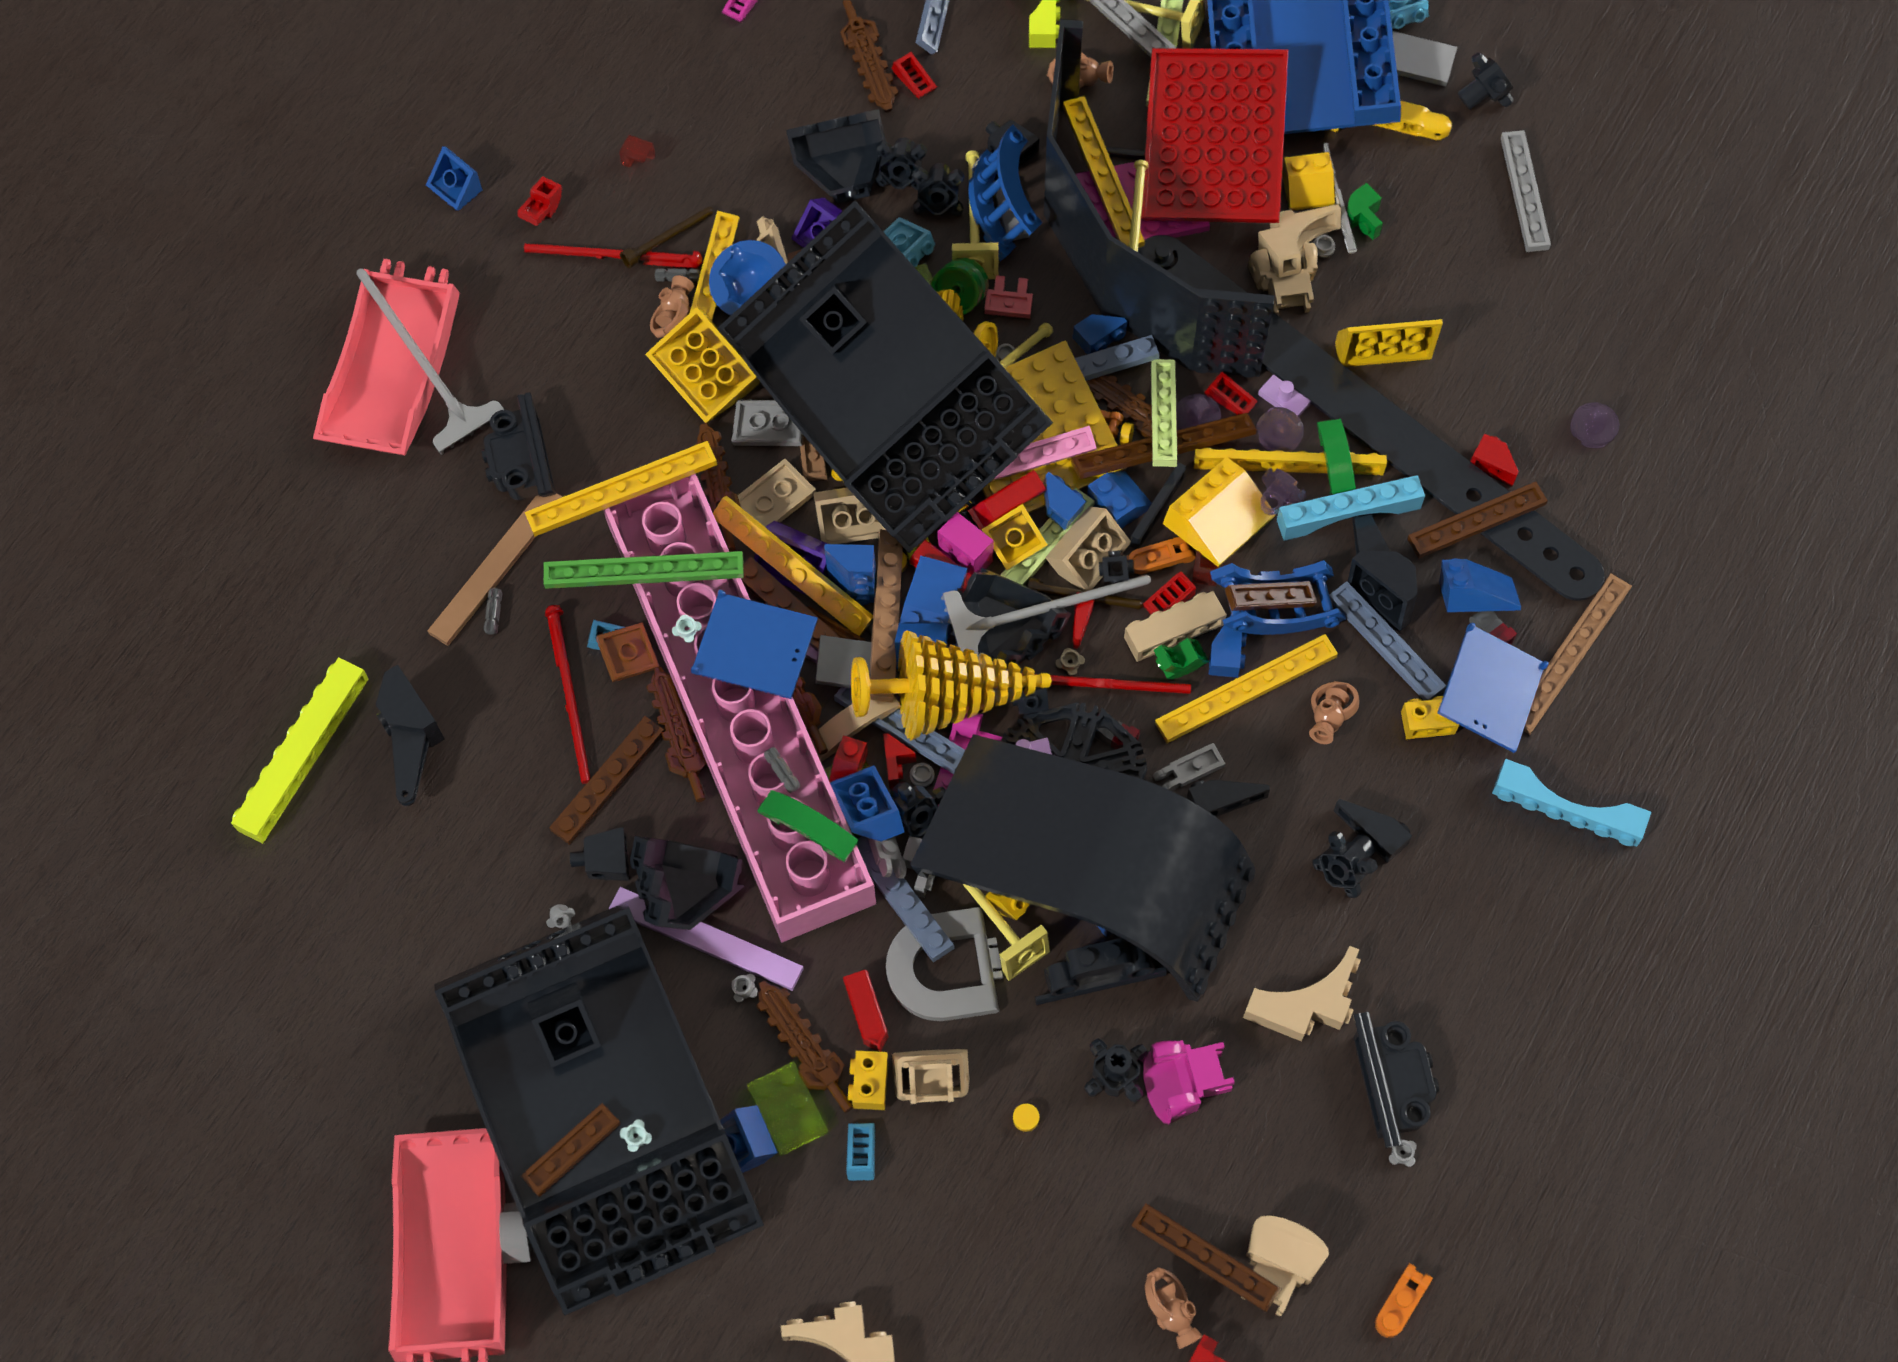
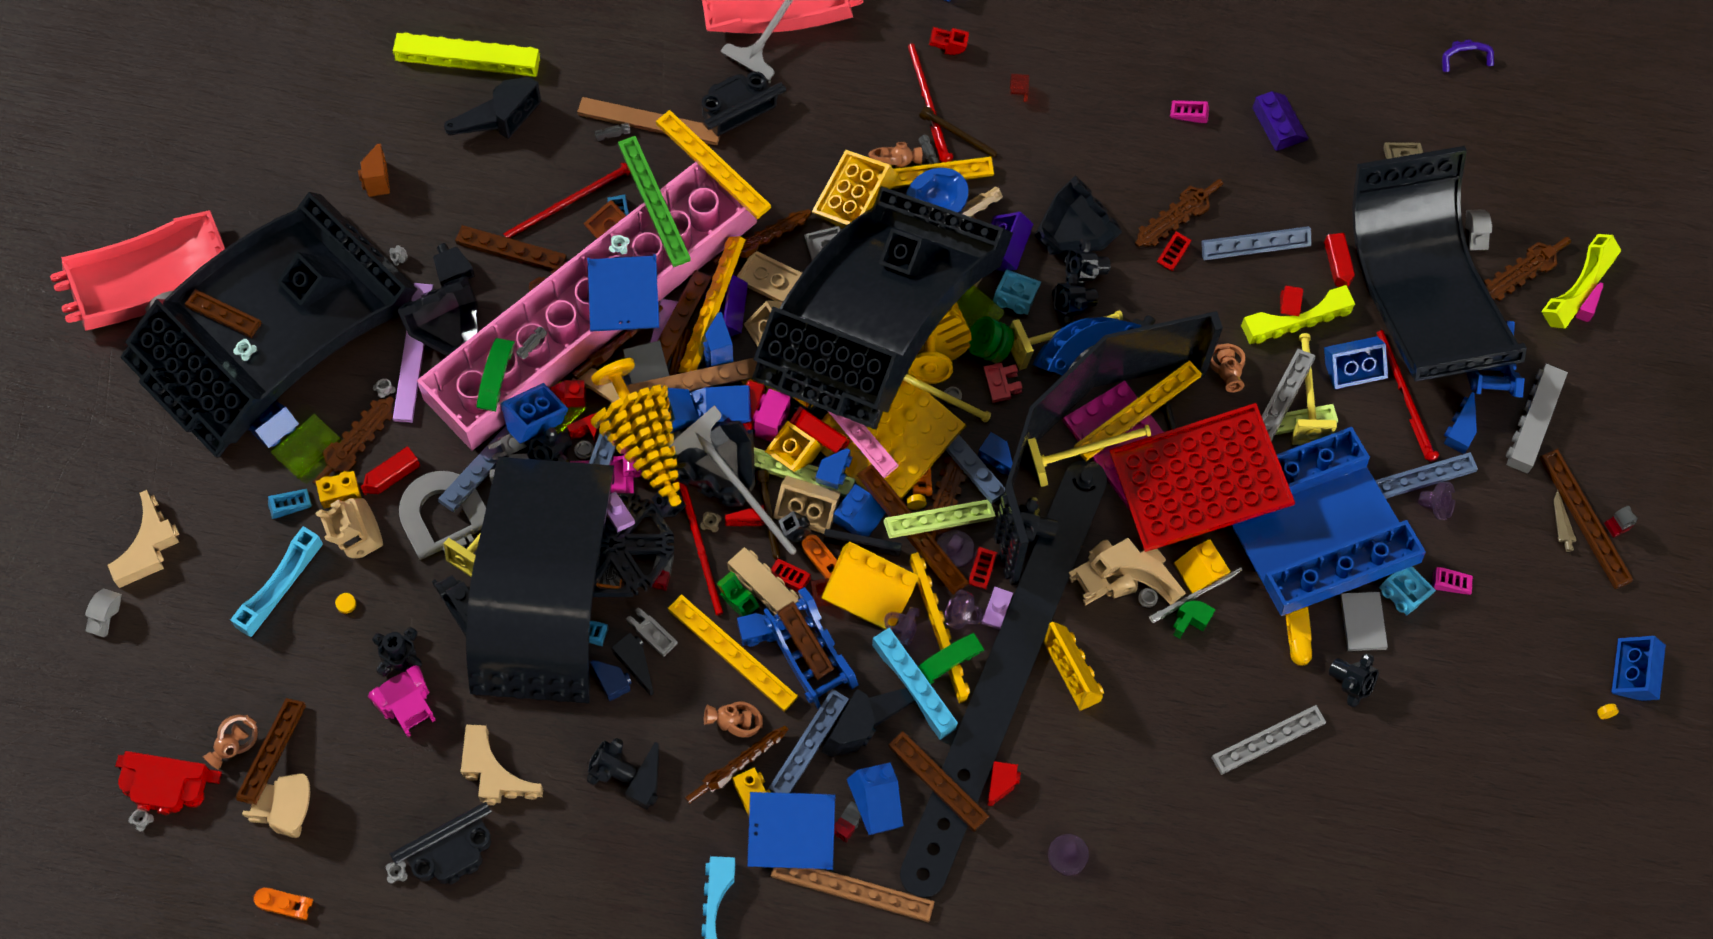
camera: 65 degrees right, 0 degrees up
(434, 905) = (374, 173): none -> dark orange slope
(983, 1207) = (257, 608): none -> medium azure arch
(1245, 826) = (611, 679): none -> dark blue slope
(1401, 743) = (719, 777): none -> reddish brown bar

